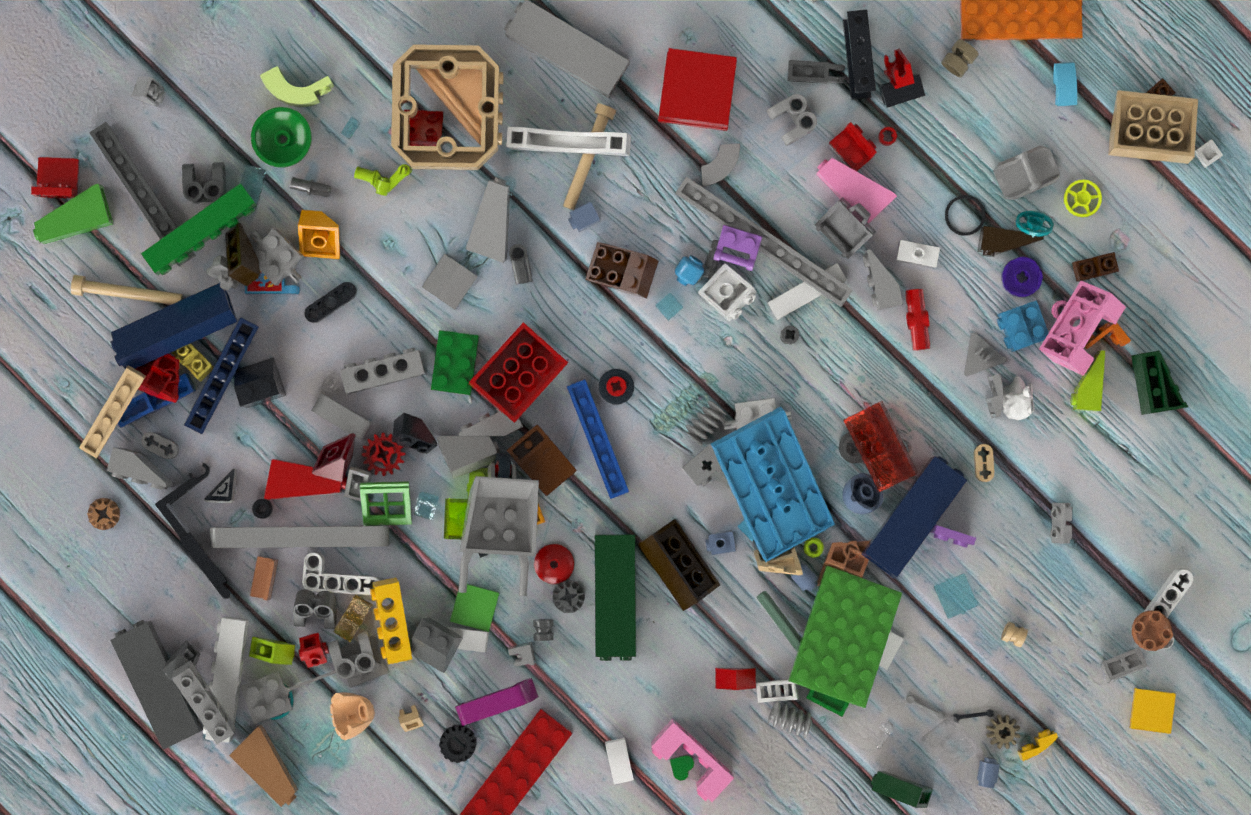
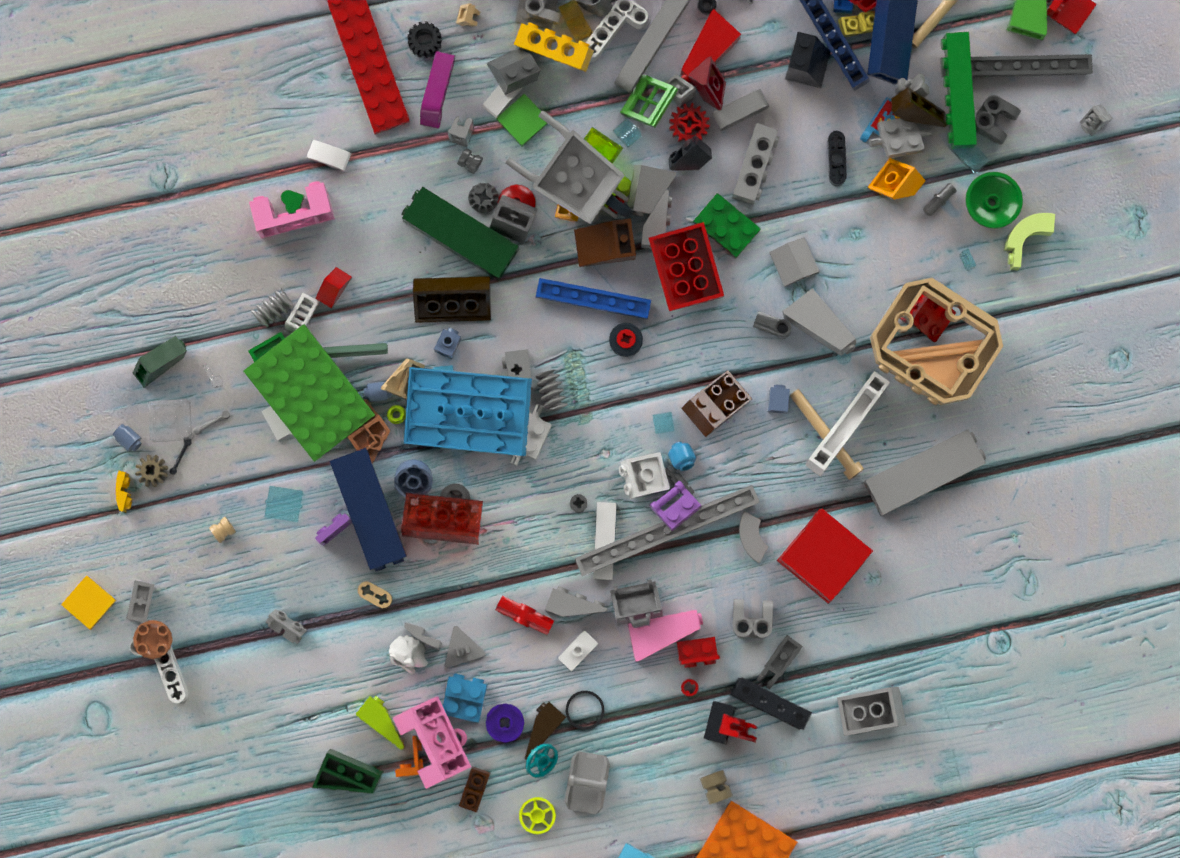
camera: 120 degrees right, 5 degrees down
(382, 184) = (907, 256): lime pin -> none
(572, 556) = (513, 219): none -> flat silver slope

